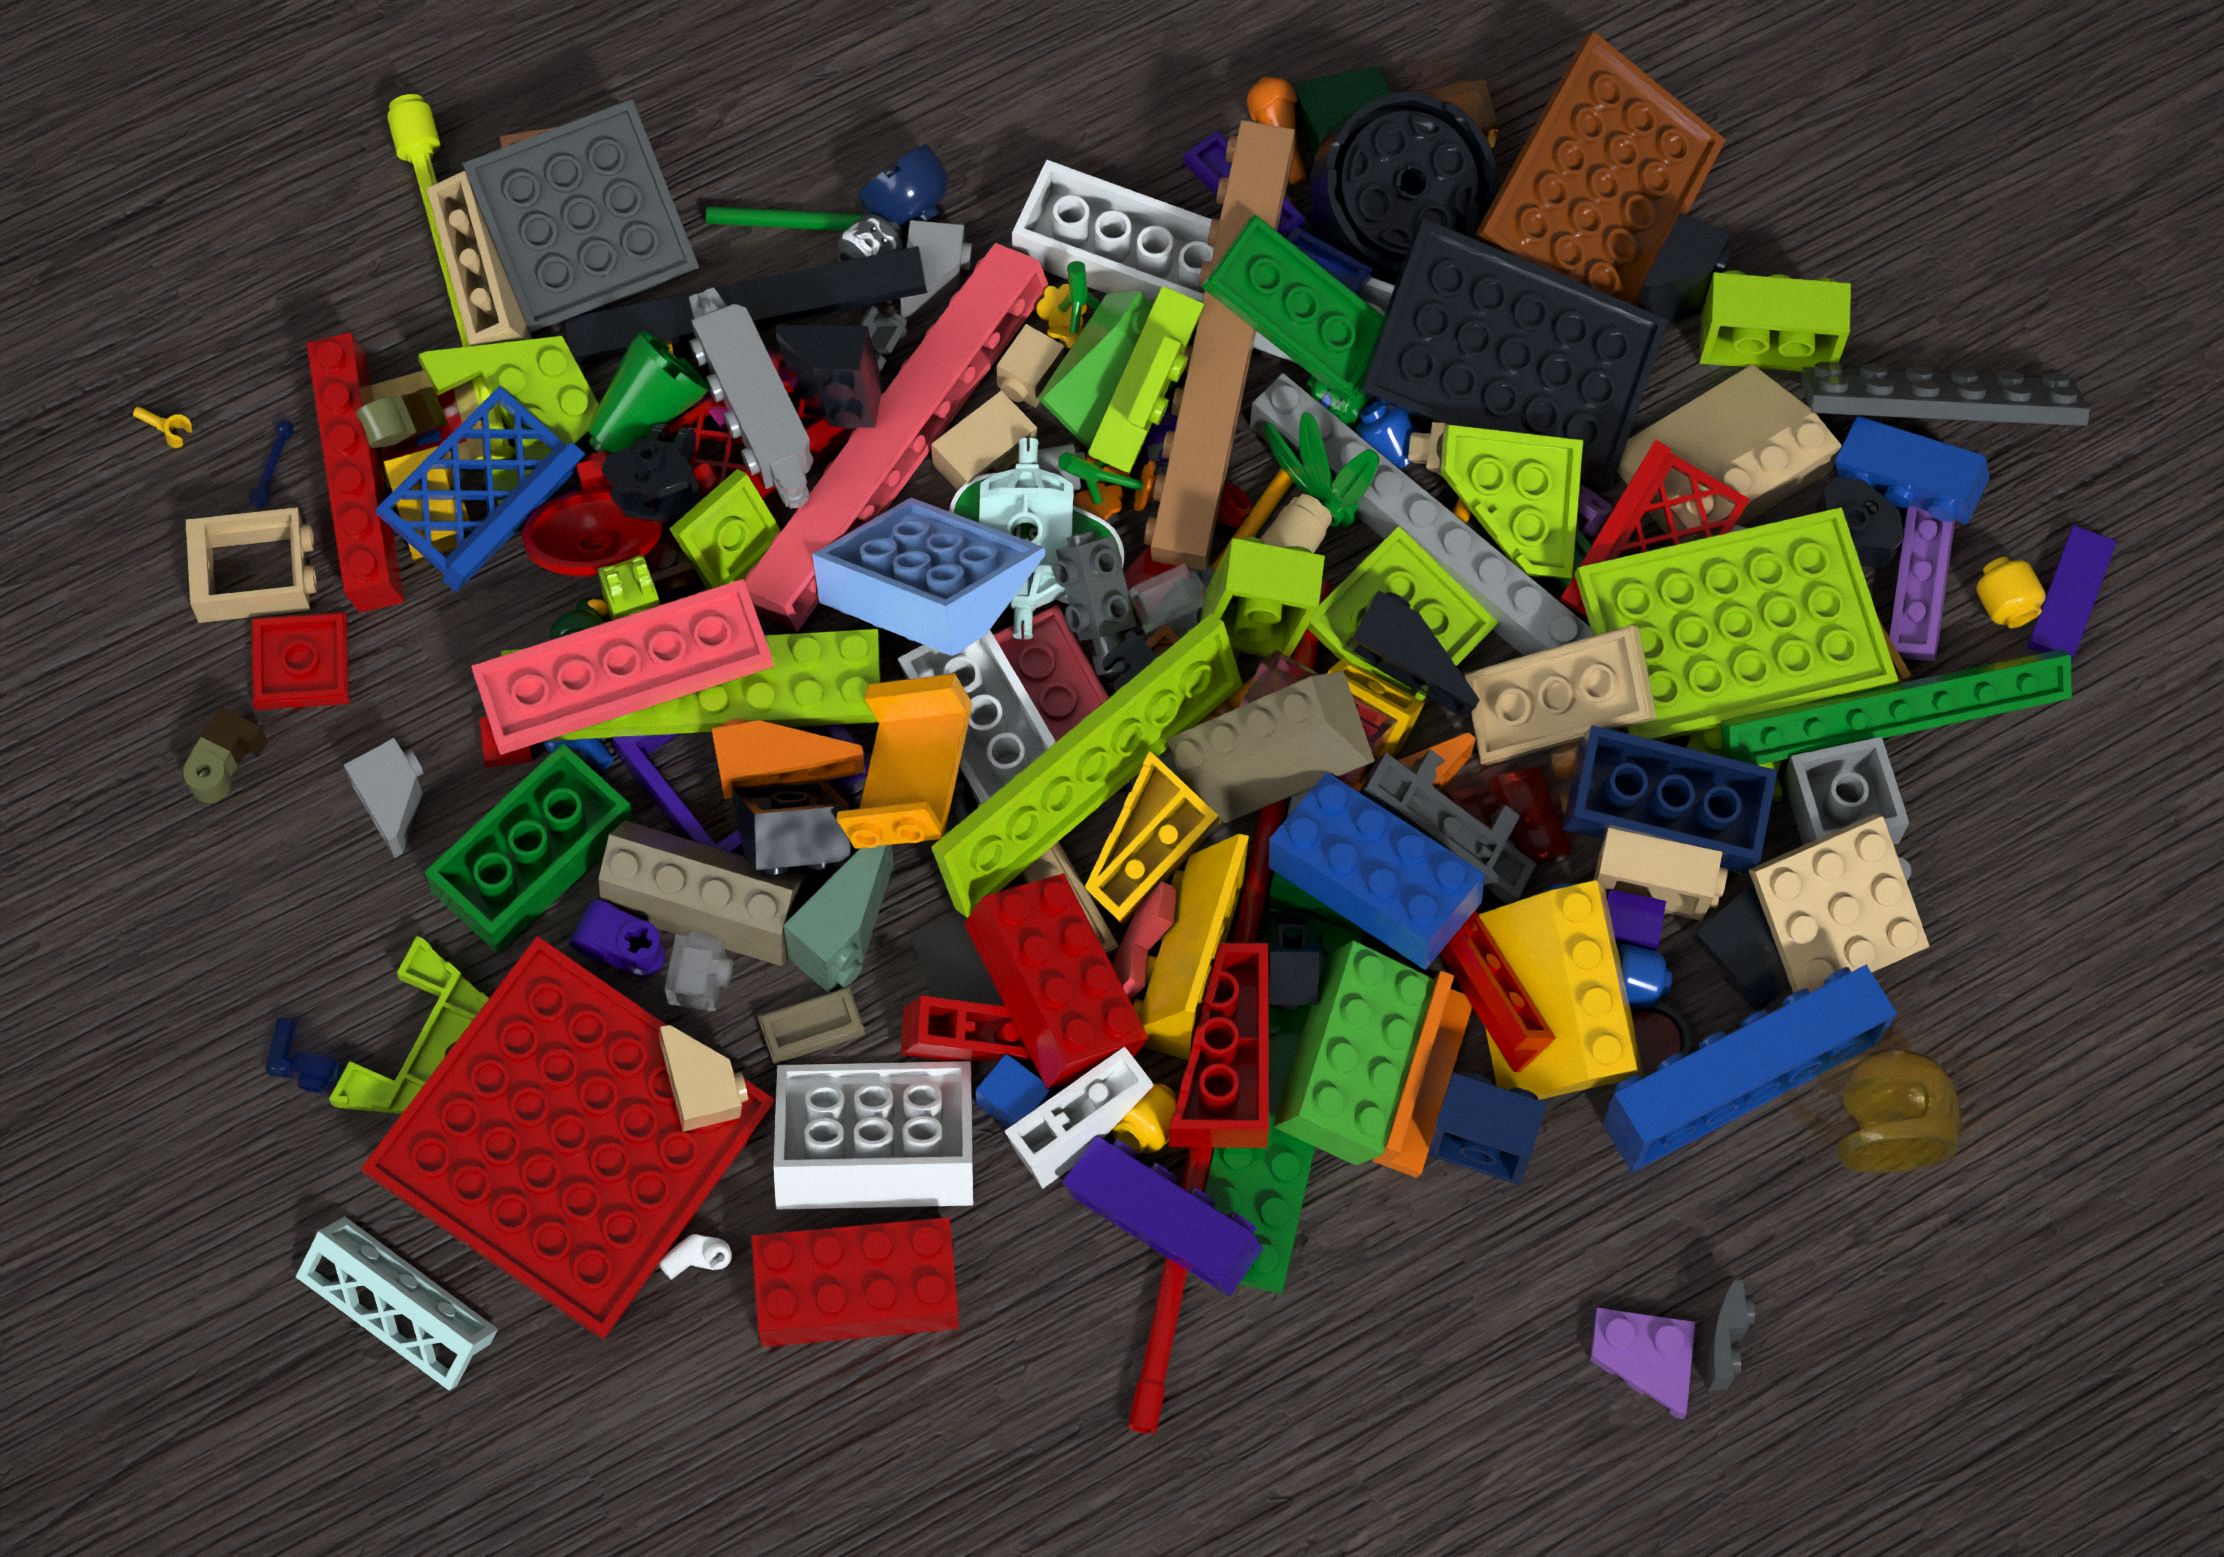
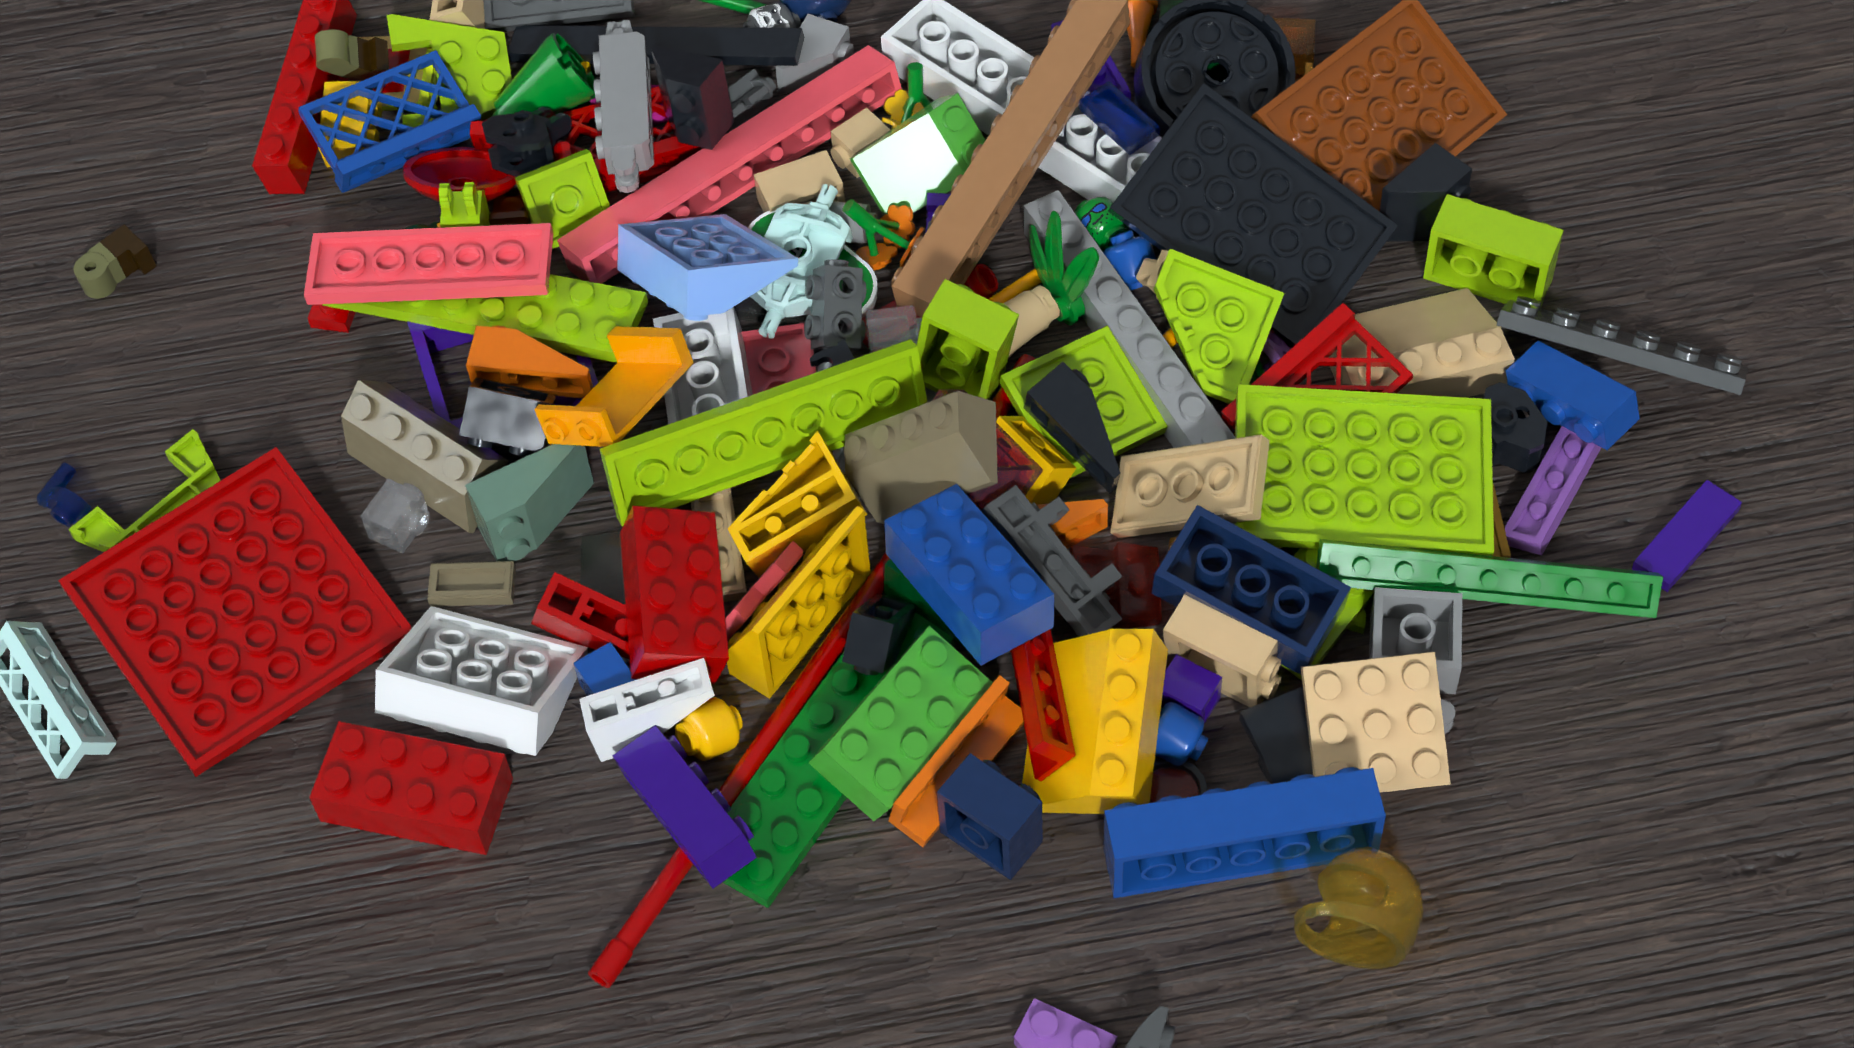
camera: 25 degrees right, 10 degrees down
(165, 425) = (189, 28): yellow hand -> none
(242, 529) = (178, 106): tan window -> none
(258, 495) = (233, 93): clear blue hinge -> none
(300, 661) = (206, 215): red tile -> none
(388, 790) = (223, 320): light grey slope -> none
(528, 848) = (302, 385): green brick -> none
(591, 749) = (393, 329): blue arm -> none
(612, 935) = (346, 474): dark purple piece -> none
(696, 1251) = (299, 729): white arm -> none
(700, 1081) = (352, 592): tan slope -> none
(1146, 378) = (939, 162): lime bracket -> none
(1228, 1069) = (787, 699): red wedge -> none
(1296, 305) = (1078, 130): green tile -> none
(2010, 592) = (1629, 517): yellow head -> none

